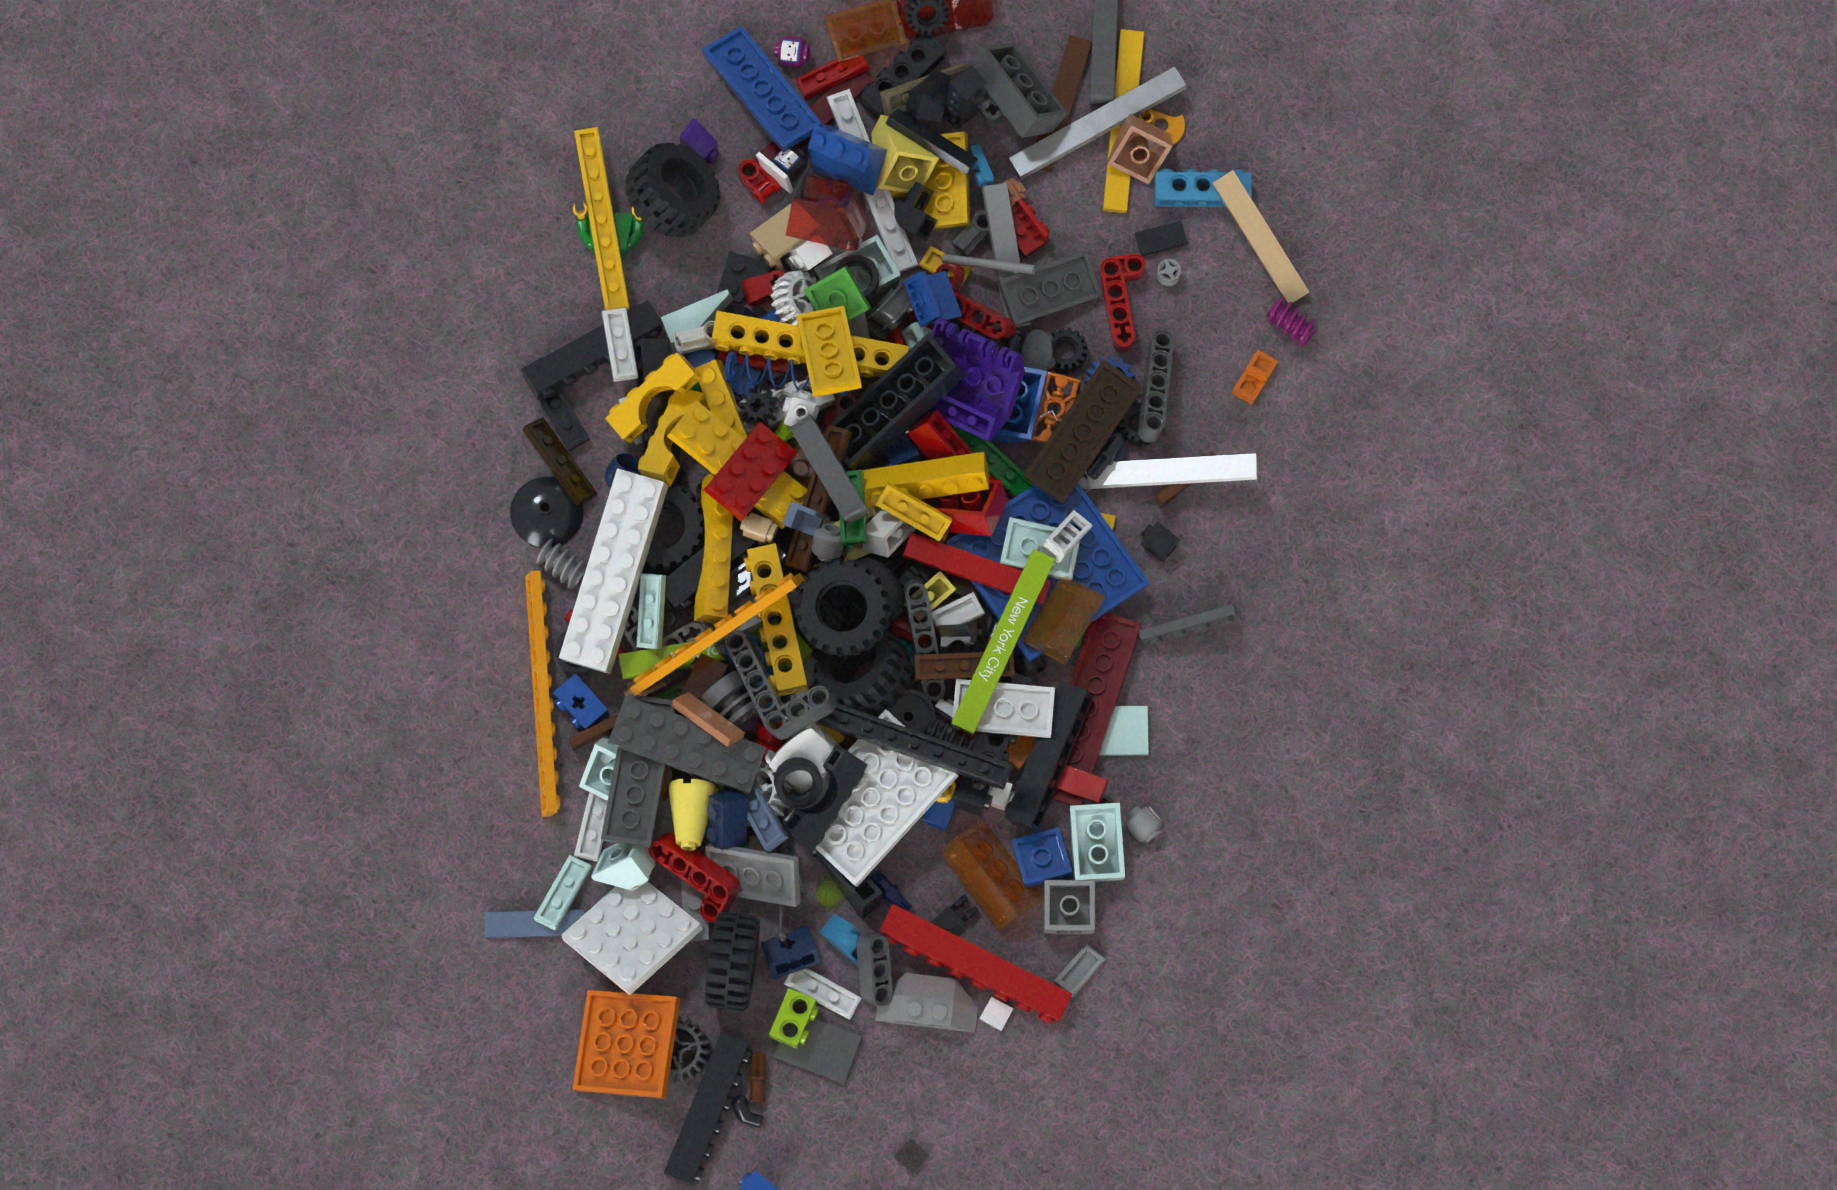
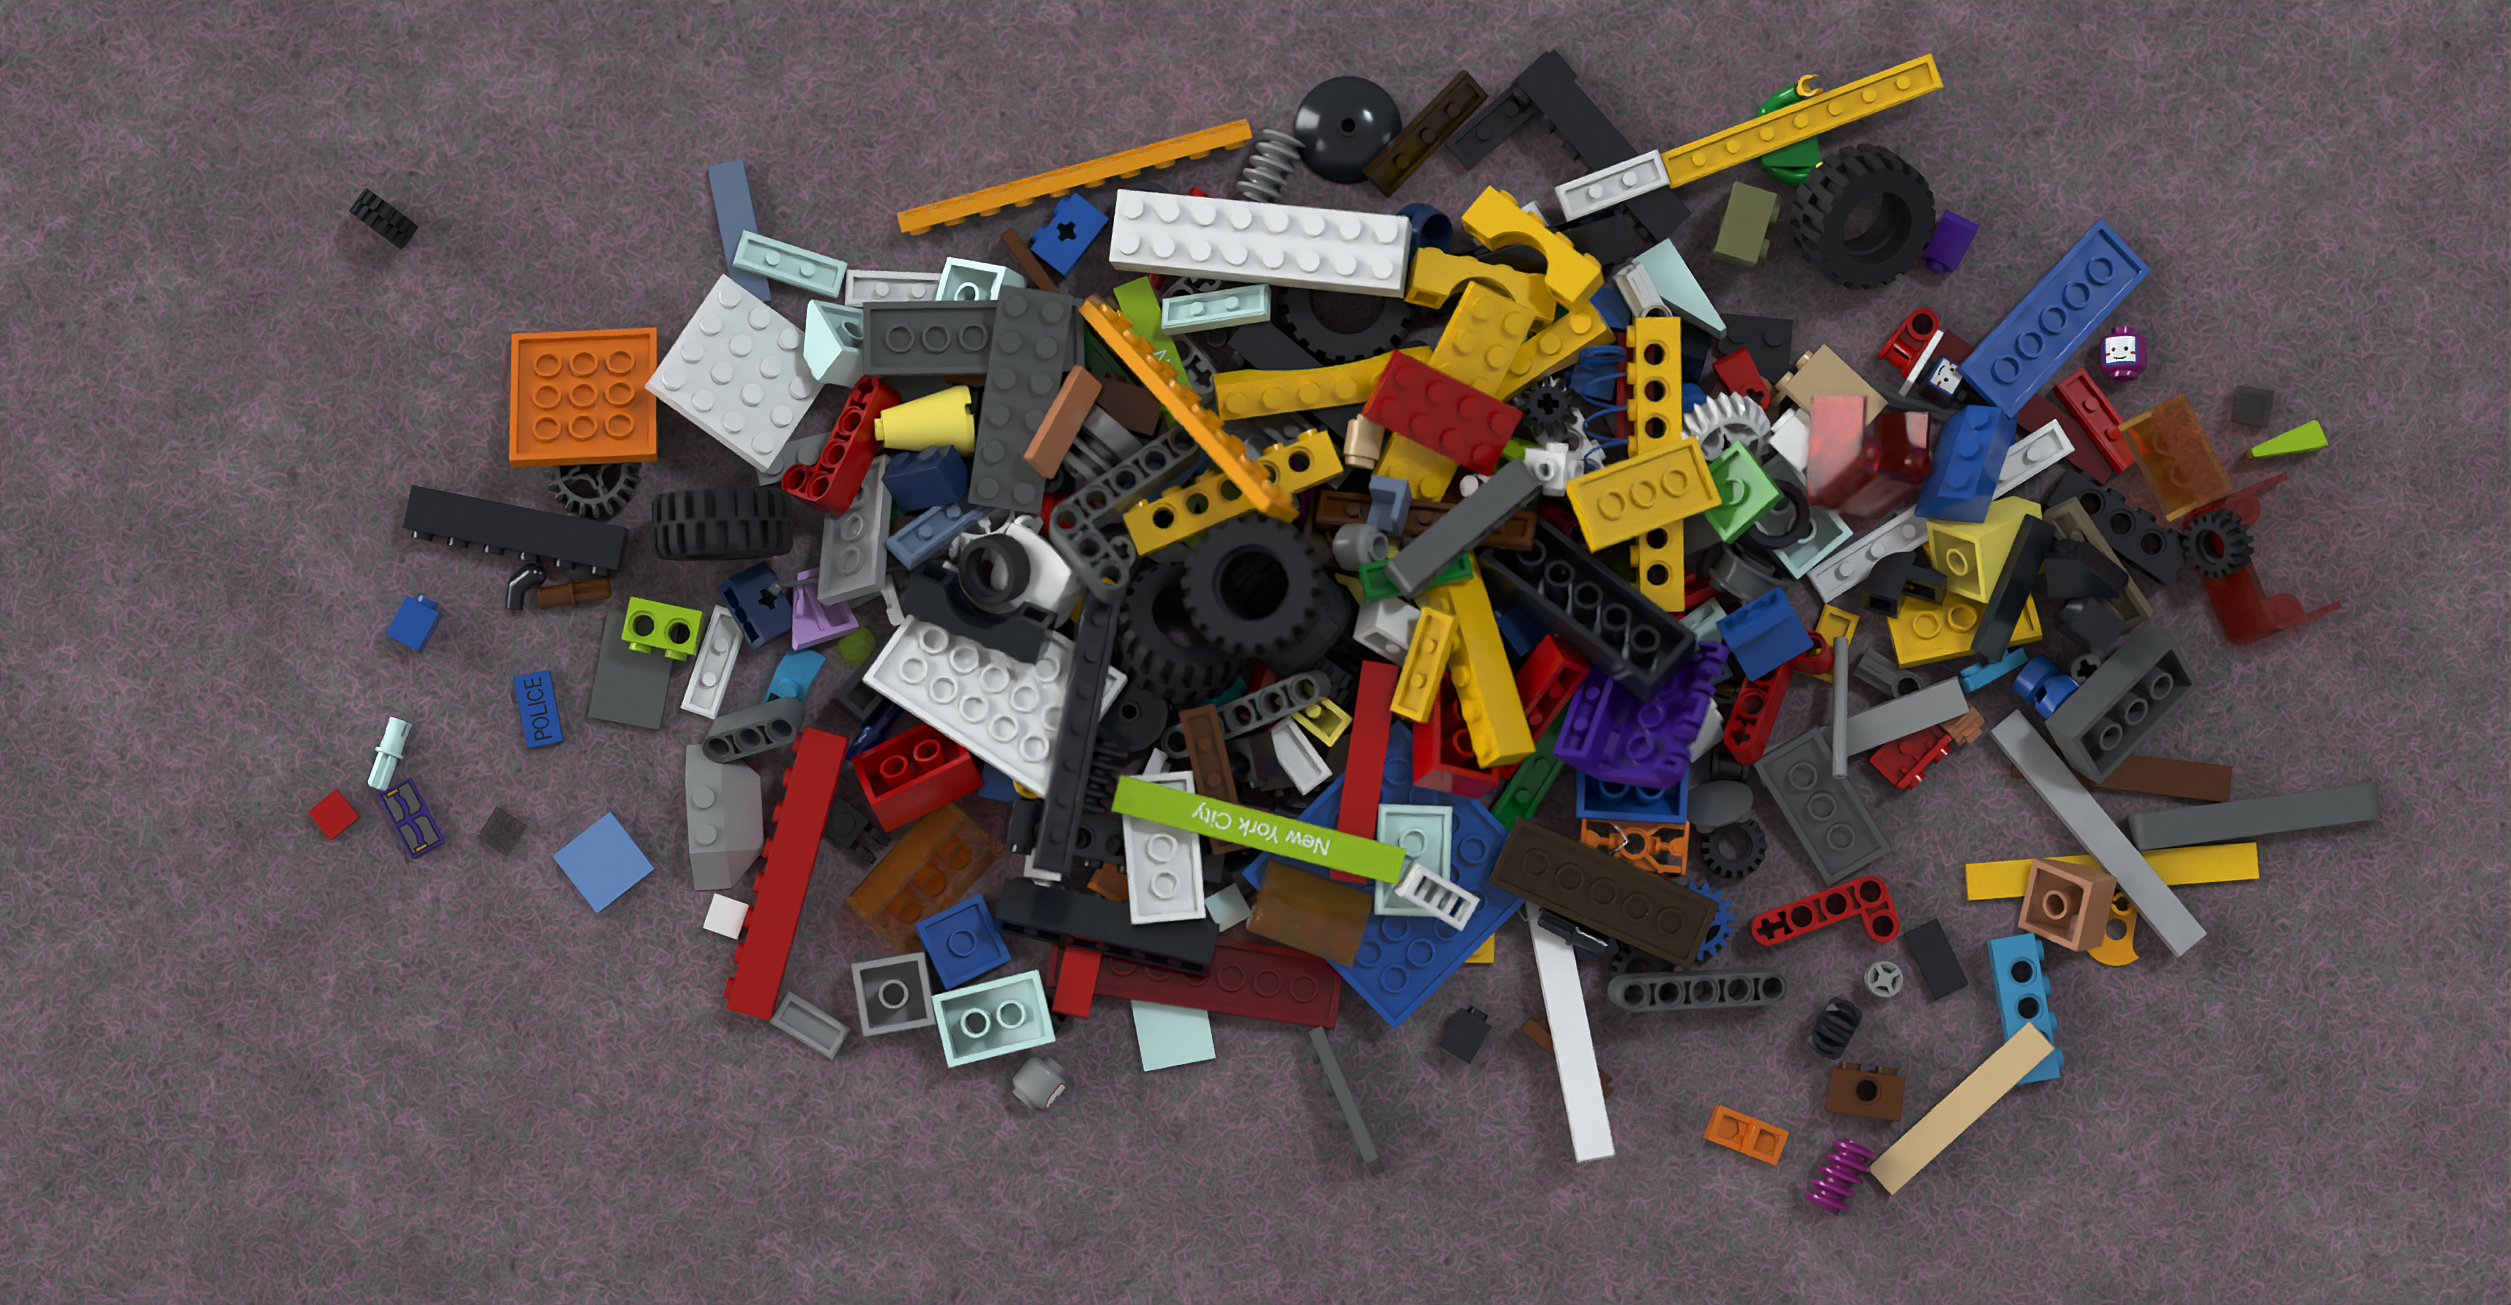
camera: 80 degrees right, 10 degrees up
(476, 1161) = (383, 218): none -> black tyre
(663, 268) = (1743, 227): none -> olive brick
(805, 916) = (813, 620): none -> lavender wing
(809, 859) = (893, 601): none -> white tile
(832, 1116) = (538, 709): none -> blue tile
(924, 865) = (915, 775): none -> red brick
(945, 1090) = (604, 862): none -> medium blue tile
(993, 142) = (2043, 684): none -> blue wheel
(1048, 677) = (1227, 907): none -> light aqua tile
(1195, 306) = (1835, 1028): none -> black gear
(1246, 284) = (1887, 1096): none -> reddish brown brick

